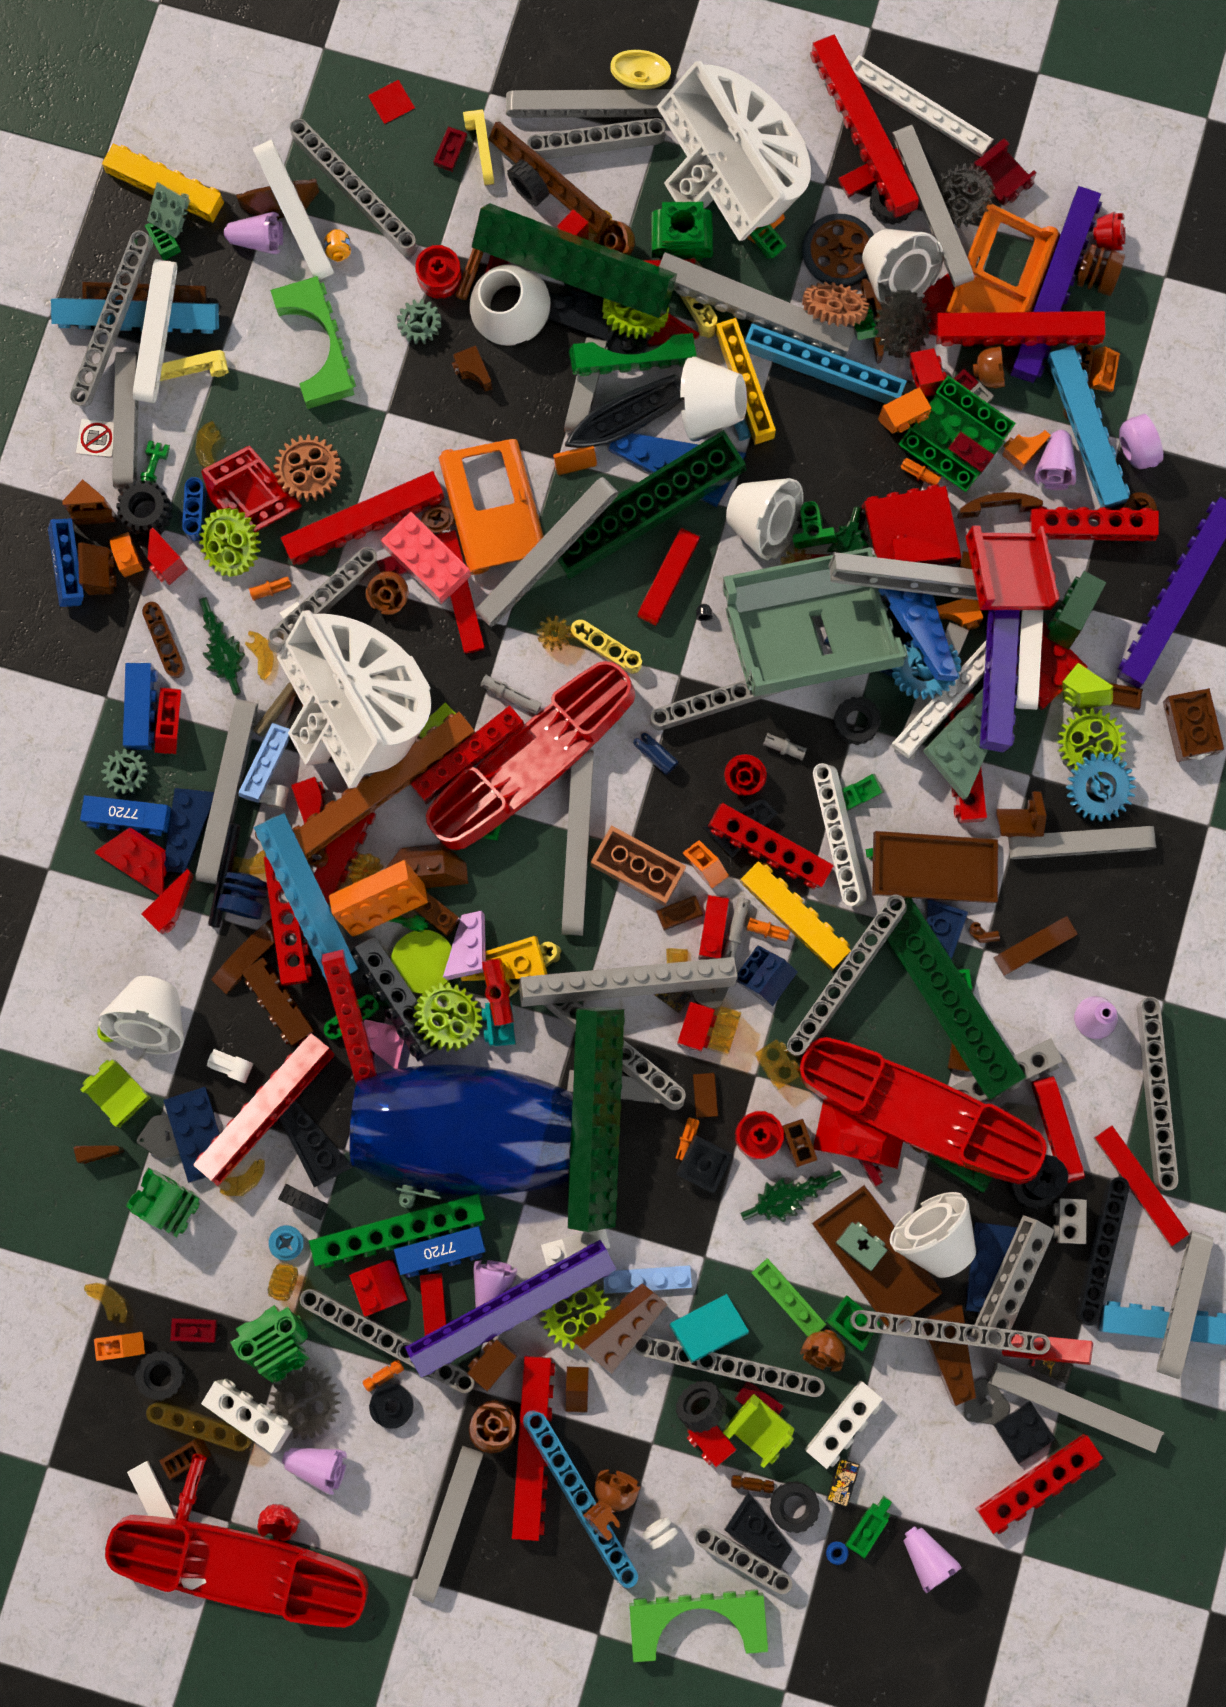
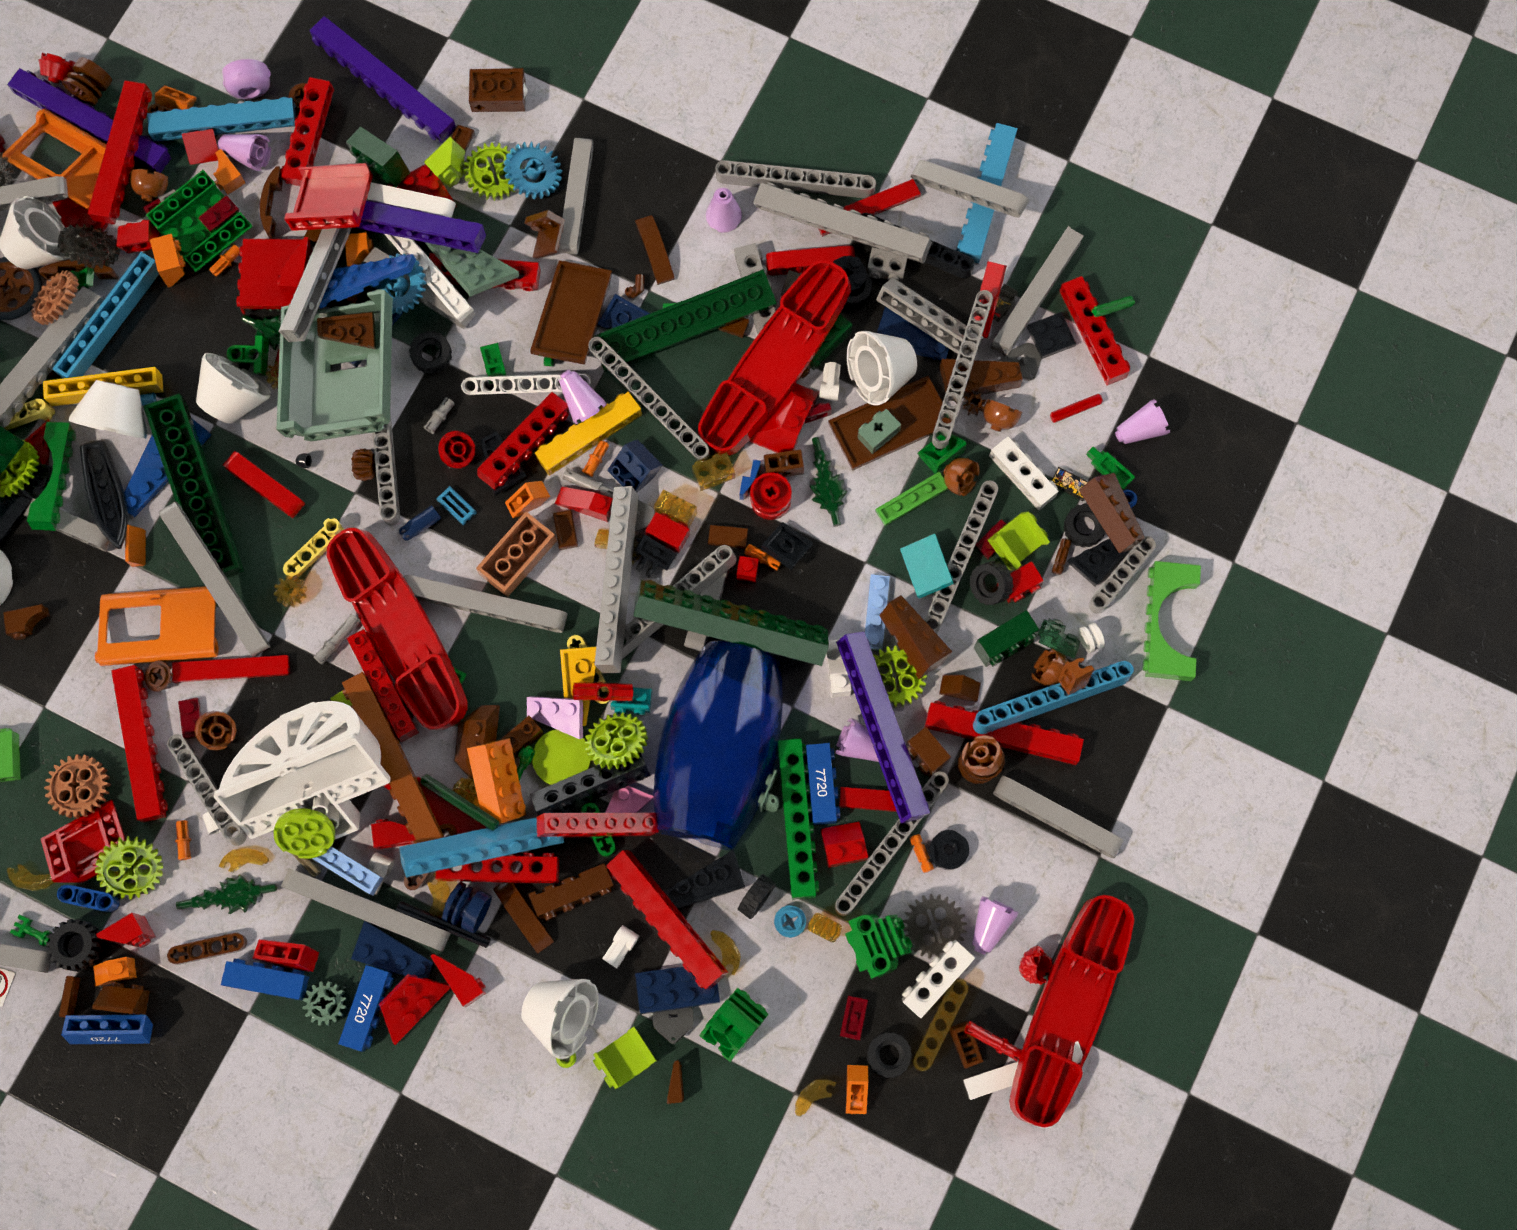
camera: 80 degrees left, 5 degrees down
(84, 498) = (49, 997): dark orange slope -> none
(290, 710) = (304, 833): none -> lime tile
(349, 864) = (459, 802): none -> dark green axle
(425, 557) = (191, 690): coral brick -> none
(638, 1434) = (1006, 639): none -> dark green brick
(648, 1494) = (1053, 636): none -> clear green plate
(668, 1124) = (747, 569): none -> red brick
(669, 1016) = (655, 553): none -> black hinge
(675, 803) = (467, 516): none -> dark azure tile
(709, 677) = (363, 464): none -> reddish brown gear
(769, 1106) = (747, 481): none -> blue slope
(812, 1537) = (1113, 511): none -> reddish brown wedge
(830, 898) = (579, 396): none -> lavender cone
(859, 626) = (349, 329): none -> reddish brown wing
(908, 1387) = (1001, 415): none -> dark orange cylinder
(911, 1179) = (830, 387): none -> white piece
(923, 1354) = (971, 408): none -> reddish brown gear
(938, 1475) = (1076, 408): none -> red axle
(1051, 412) = (200, 146): none -> red sticker
(1072, 1502) = (1113, 306): none -> green axle
(1108, 1160) = (842, 222): none -> light grey brick

